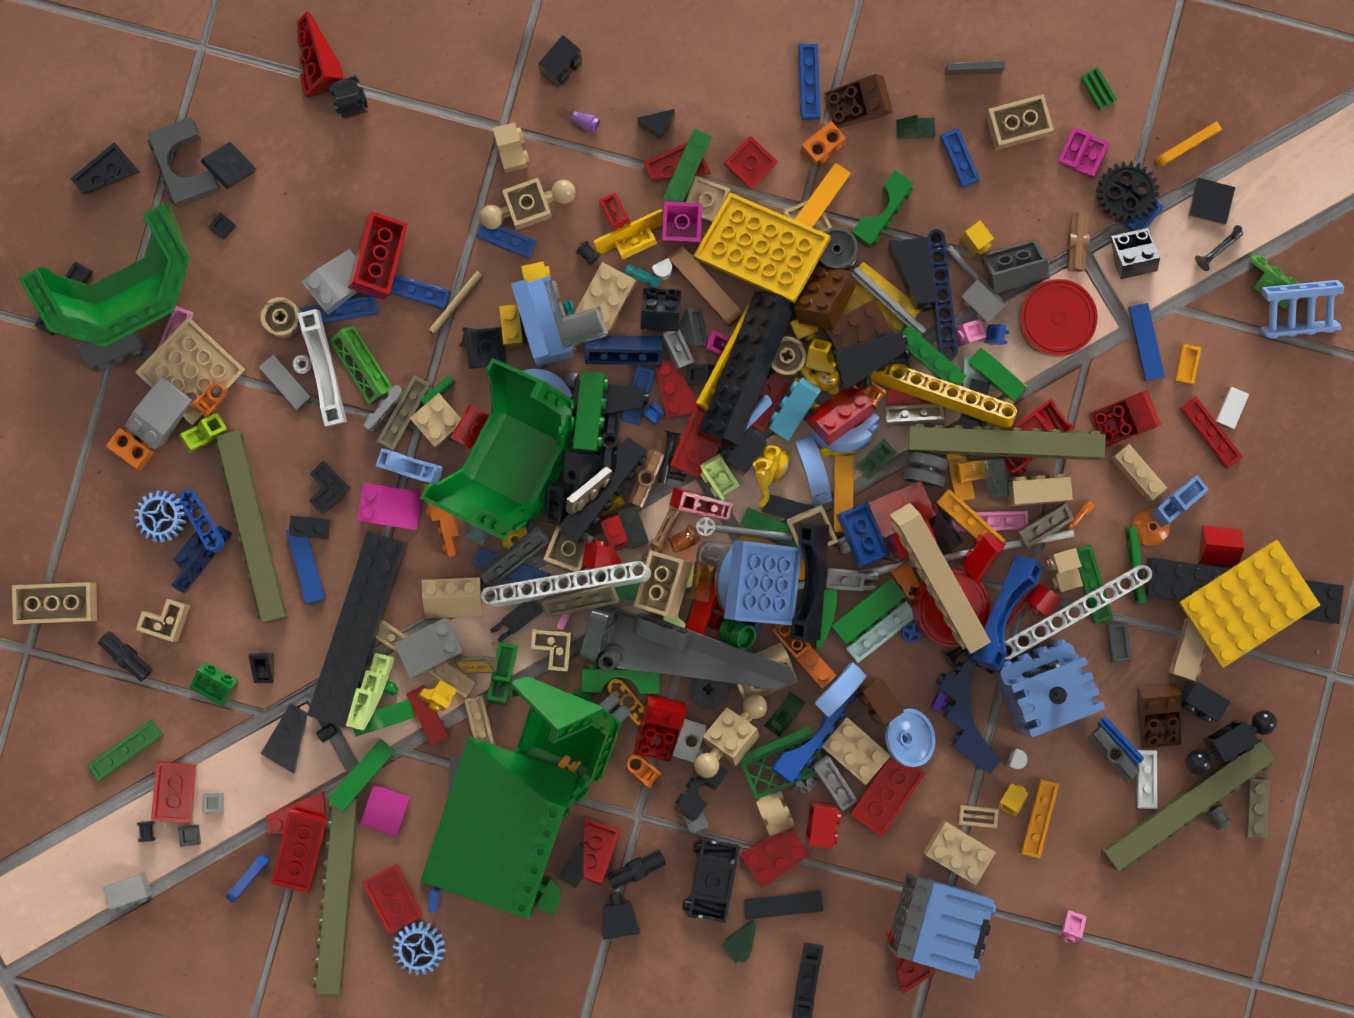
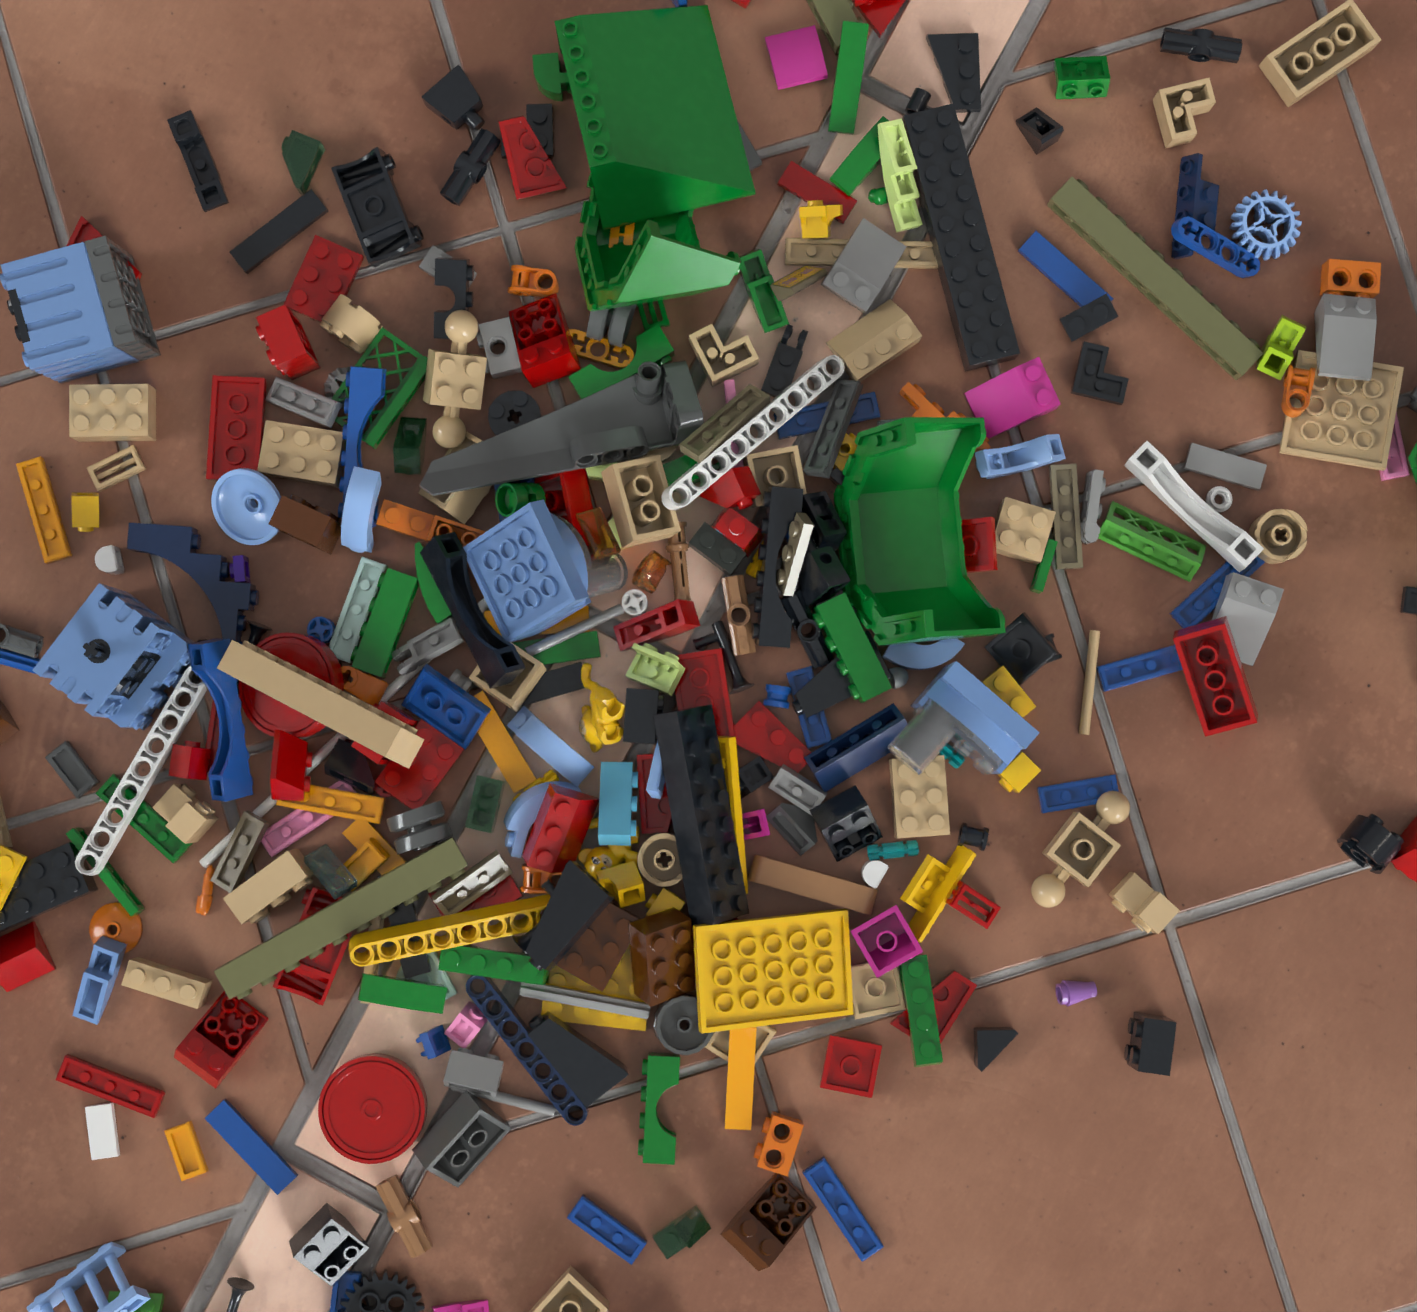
camera: 150 degrees right, 0 degrees up
(479, 719) = (754, 223): tan tile -> none
(977, 239) = (525, 1142): yellow brick -> none

